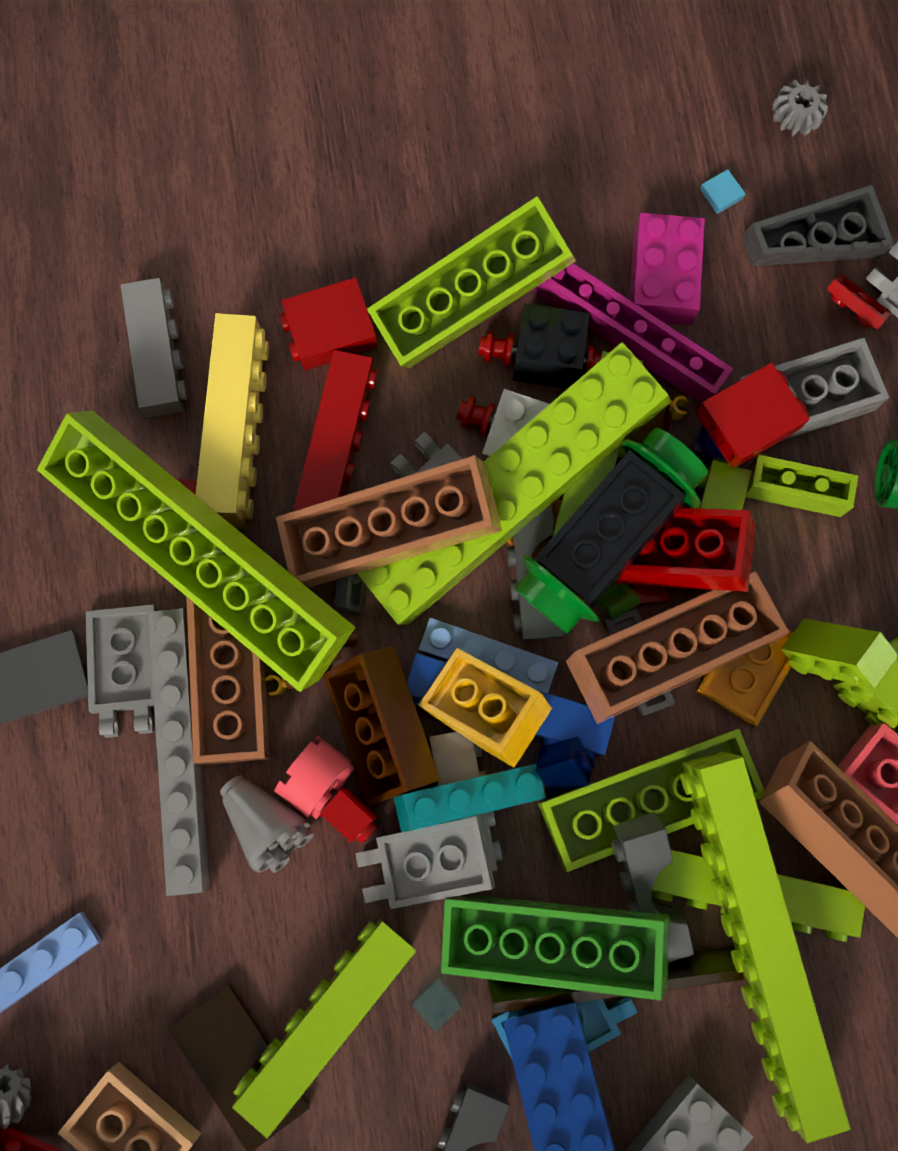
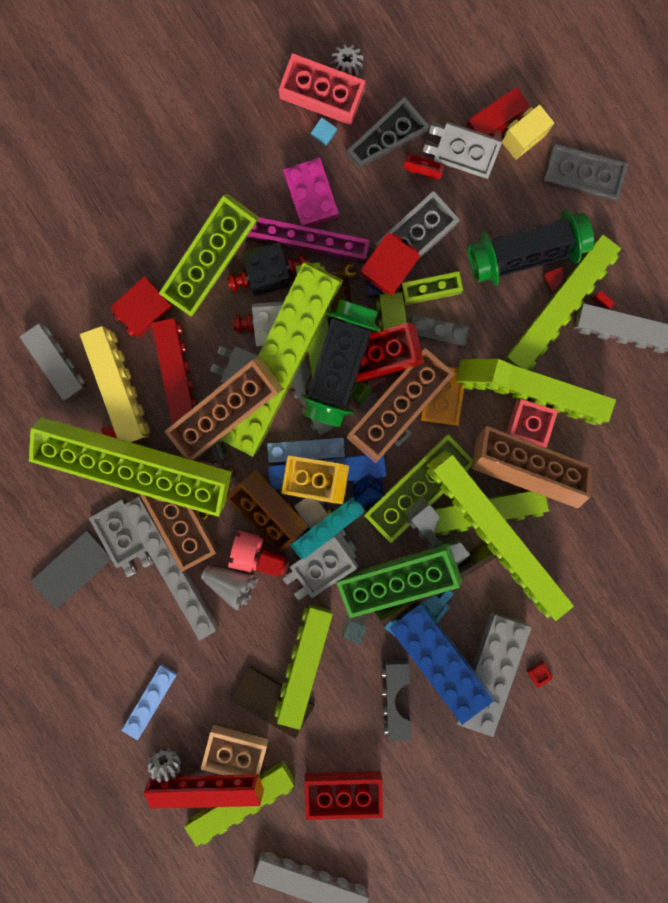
camera: 20 degrees left, 10 degrees up
(746, 128) = (321, 89): none -> coral brick
(790, 563) = (440, 330): none -> dark grey plate

